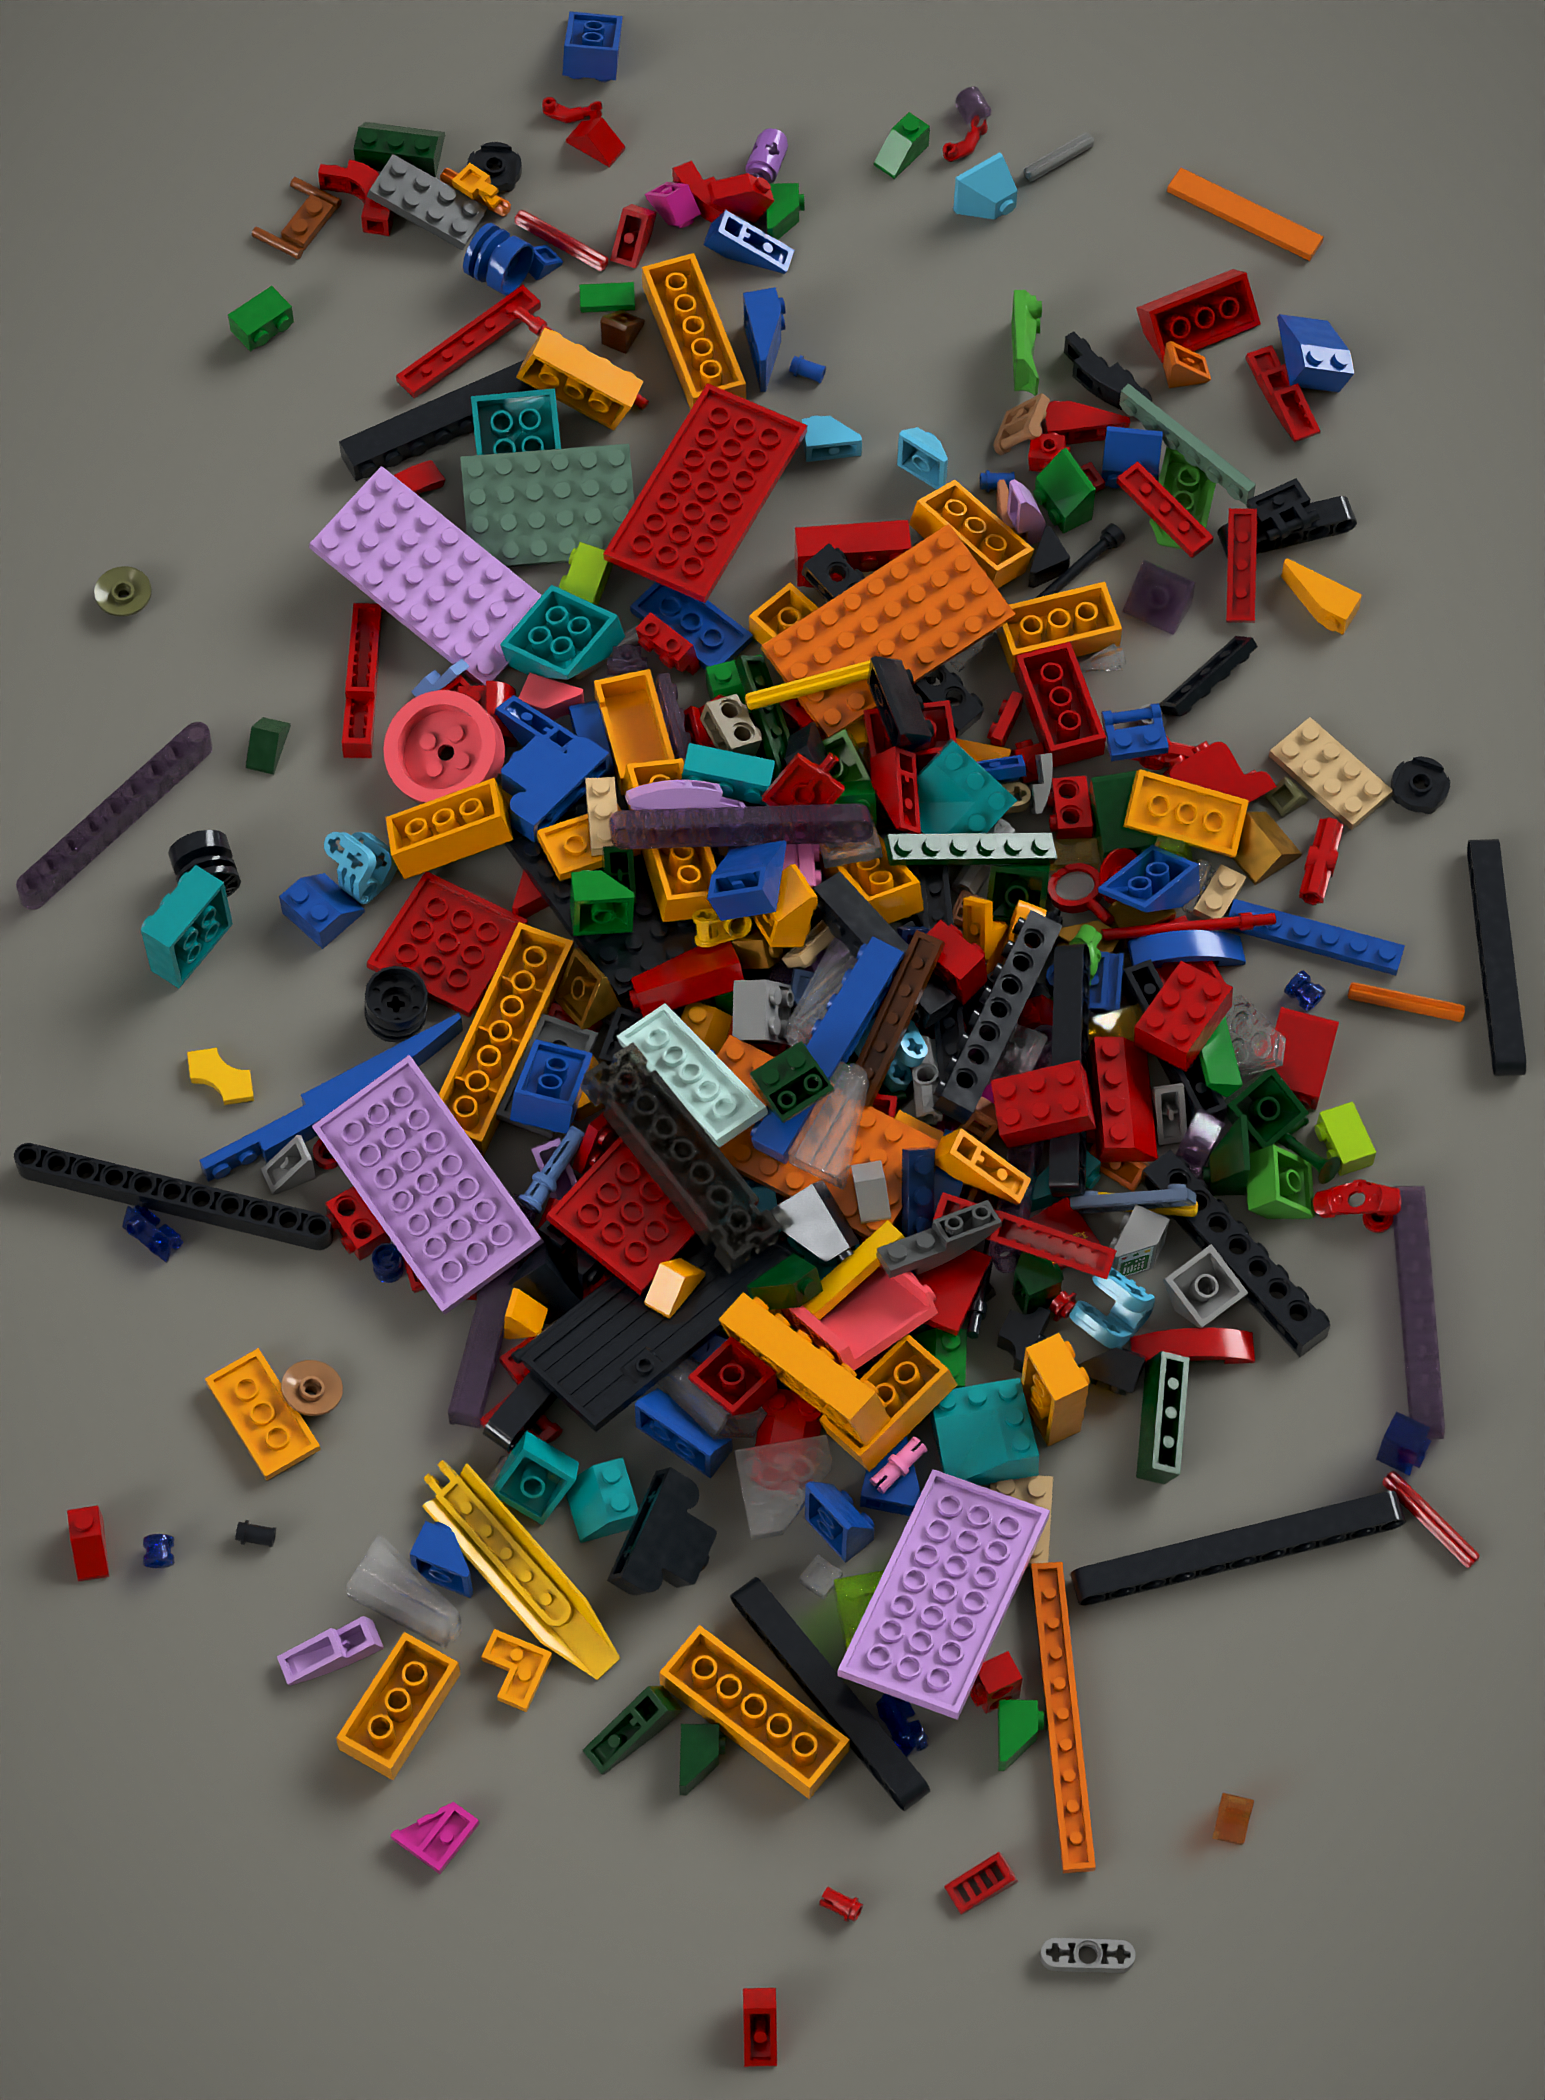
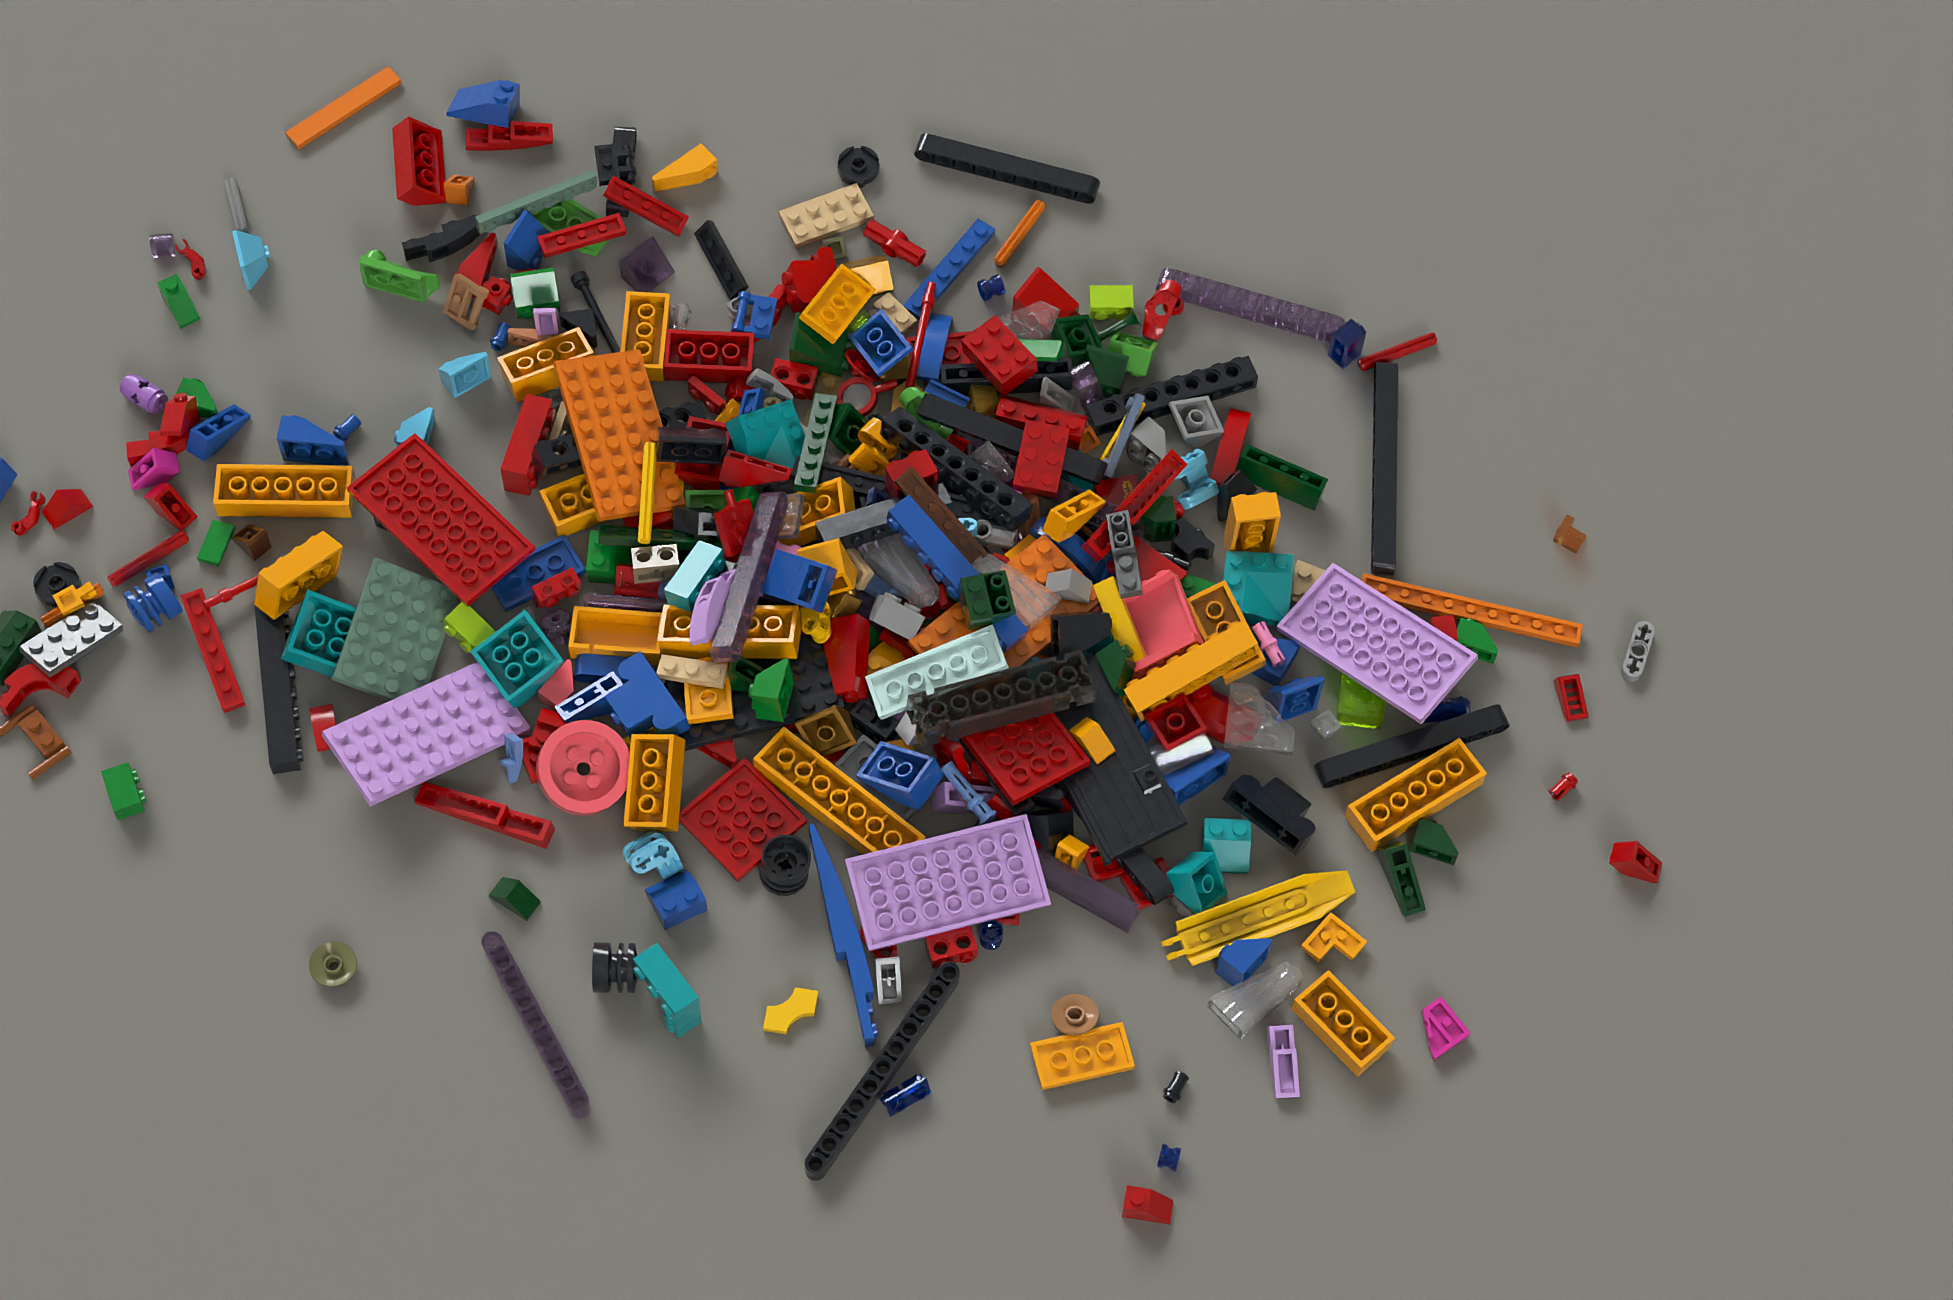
camera: 75 degrees left, 0 degrees up
(917, 1190) = (1077, 559): dark blue plate -> none

